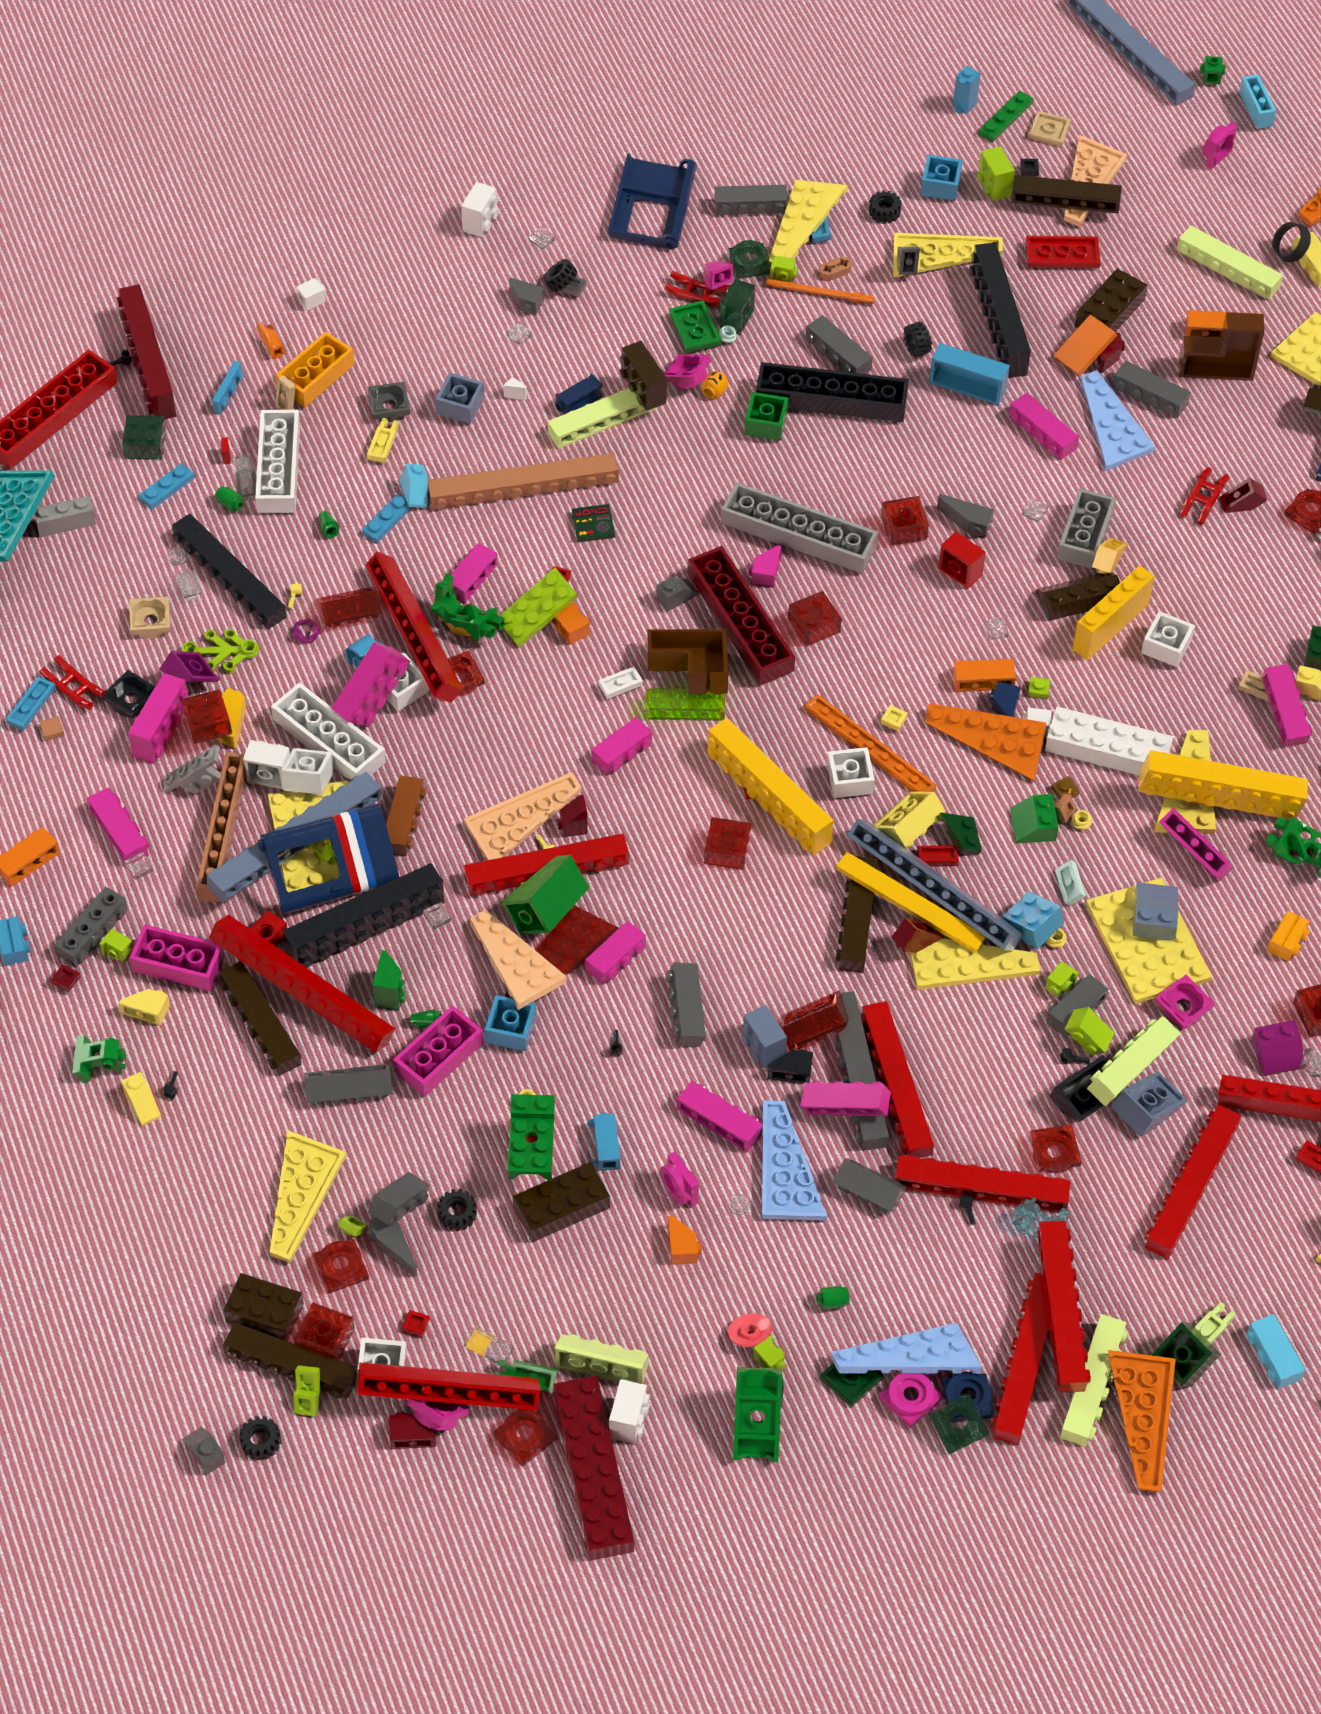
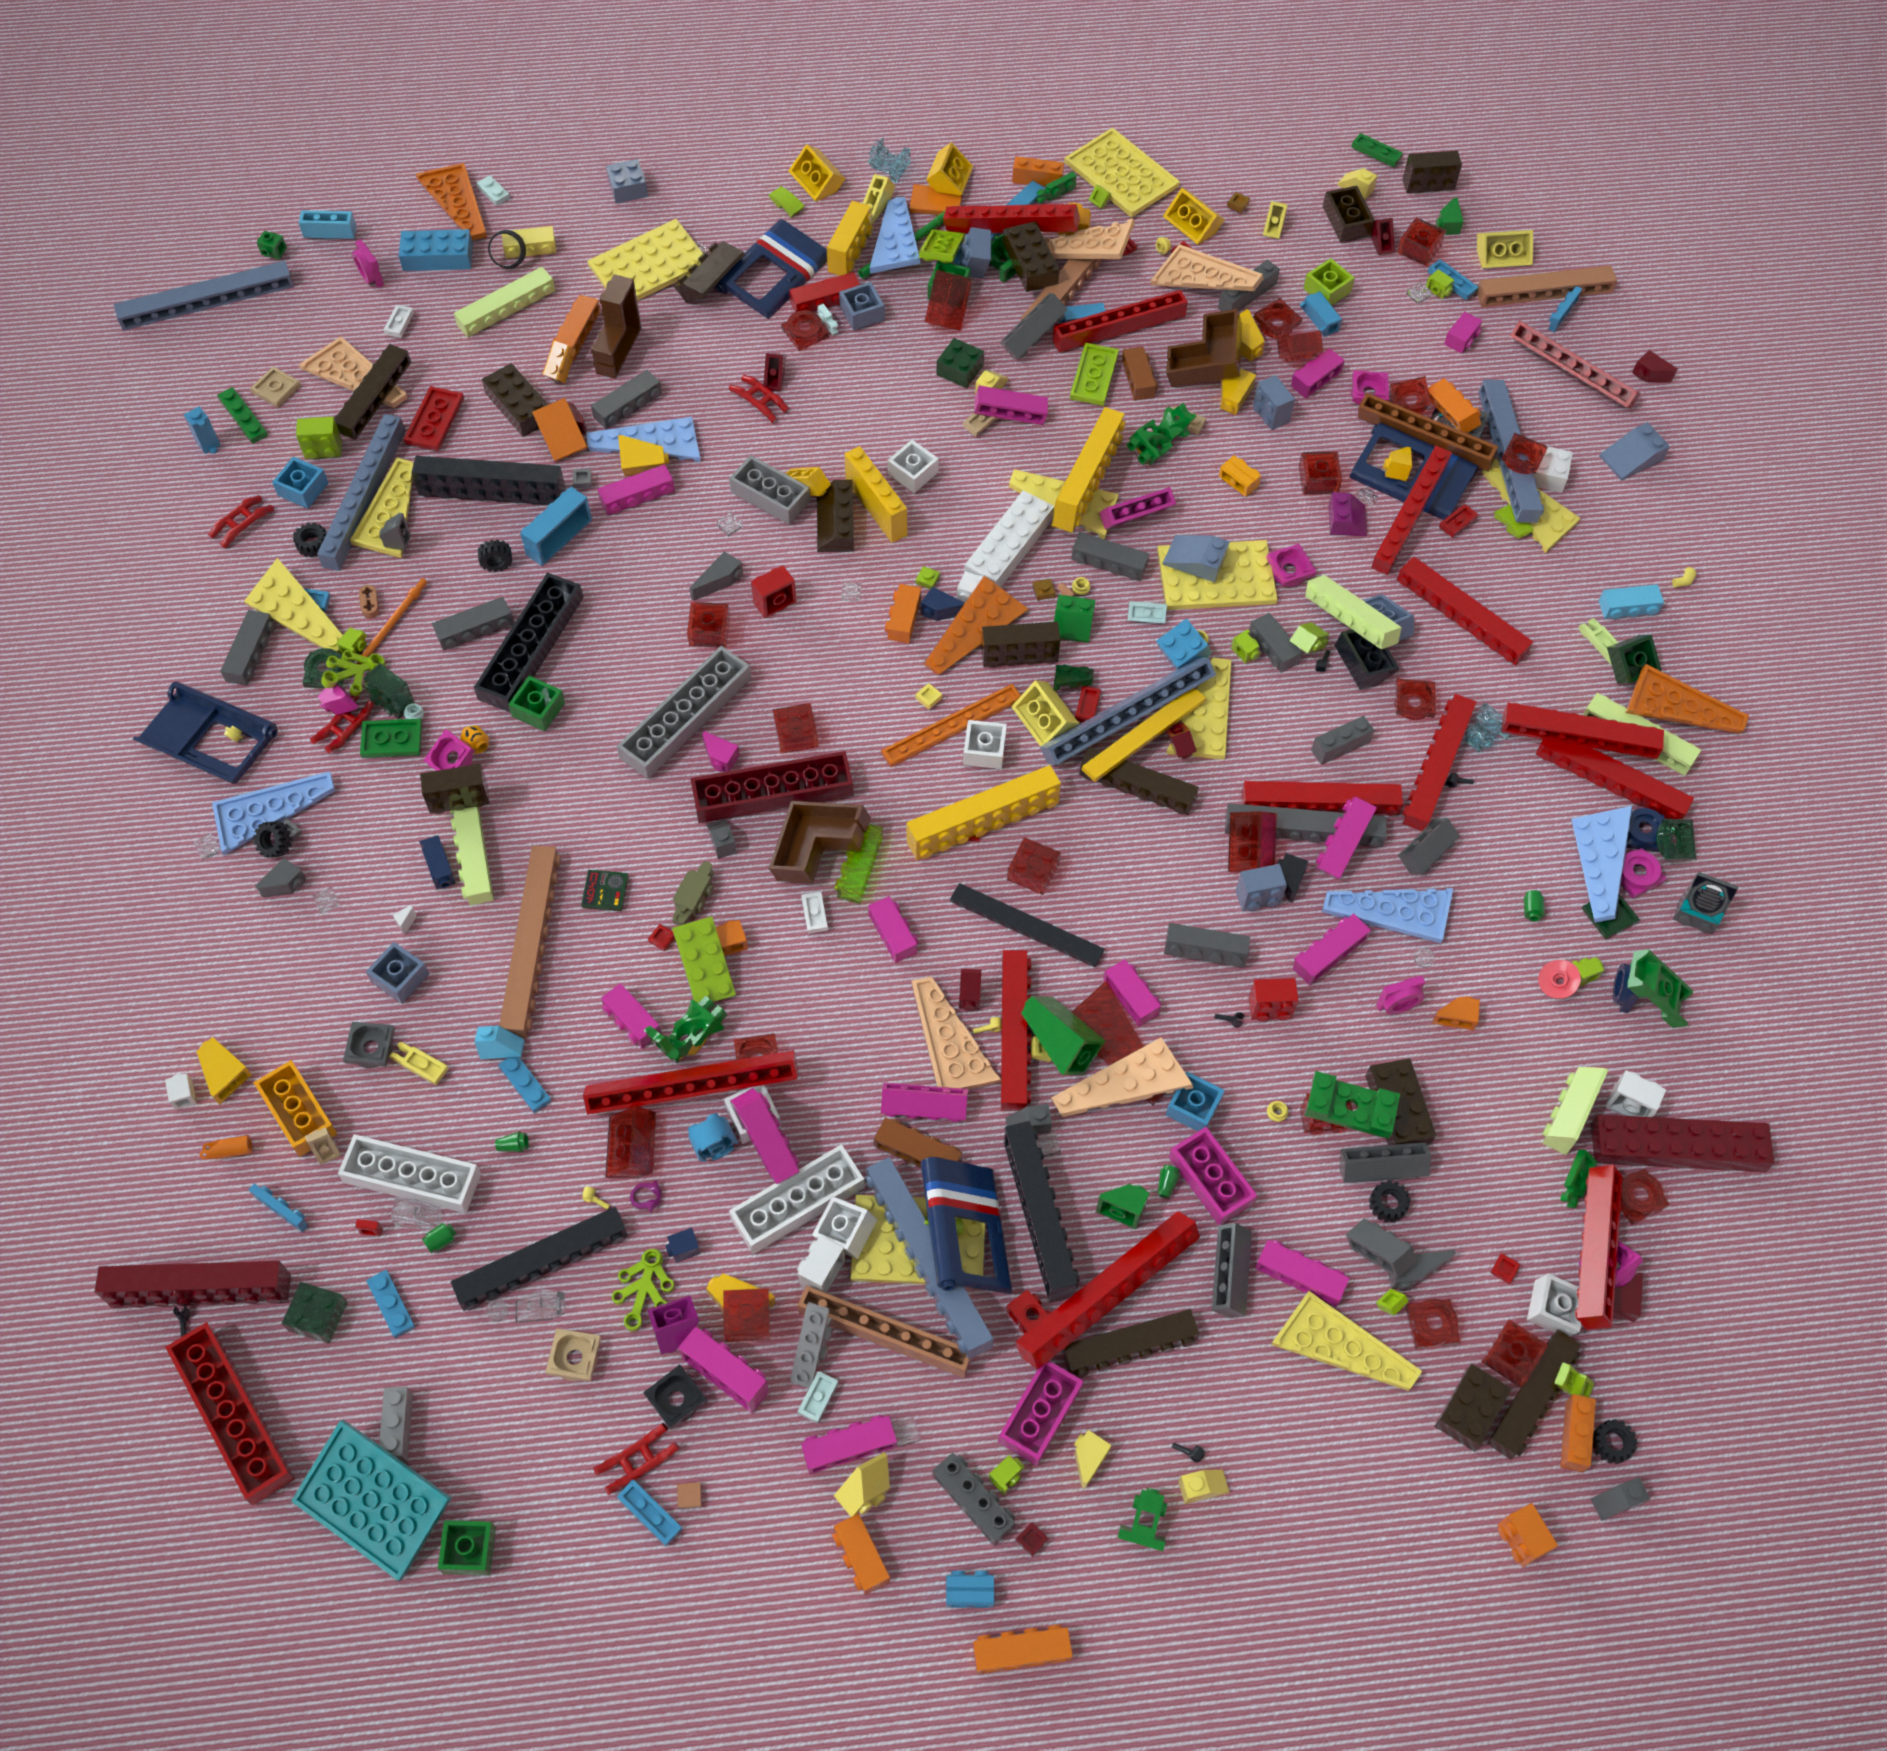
camera: 75 degrees left, 5 degrees up
(79, 838) = (865, 1486): none -> light yellow slope
(147, 1363) = (1526, 1535): none -> orange brick
(155, 795) = (818, 1397): none -> light aqua plate
(259, 1401) = (1578, 1433): none -> orange brick
(266, 666) = (682, 1245): none -> dark blue brick
(337, 313) = (221, 1069): none -> yellow slope
(362, 1145) = (1302, 1273): none -> dark pink brick
(450, 807) = (924, 1101): none -> dark pink brick
(457, 899) = (1037, 1115): none -> dark grey slope
(479, 209) = (145, 892): white brick -> none
(488, 1345) = (1538, 1207): clear tile -> none
(493, 1194) = (1385, 1162): none -> dark grey brick
(593, 264) = (241, 814): none -> light blue wing
(606, 1142) = (1340, 1051): dark azure brick -> none
(609, 585) = (692, 893): none -> olive hinge
(640, 1068) = (1273, 999): none -> red brick
(659, 219) = (233, 733): none -> light yellow plate
(664, 855) = (1027, 925): none -> black tile
(752, 275) = (330, 678): none -> lime plant
(879, 1455) = (1705, 902): none -> slope
(892, 158) = (238, 528): none -> red piece
(974, 1087) = (1342, 740): none -> dark grey brick
(979, 776) = (1020, 644): none -> dark brown brick
(984, 223) = (361, 491): none -> sand blue brick
(1029, 167) = (318, 411): black plate -> none
(1040, 382) = (582, 478): none -> flat silver plate
(1082, 416) = (640, 455): none -> yellow slope
(1127, 836) = (1110, 556): none -> dark grey brick
(1167, 191) = (398, 321): none -> white plate
(1167, 321) = (559, 361): none -> light orange brick
(1268, 191) = (435, 250): none -> dark azure brick

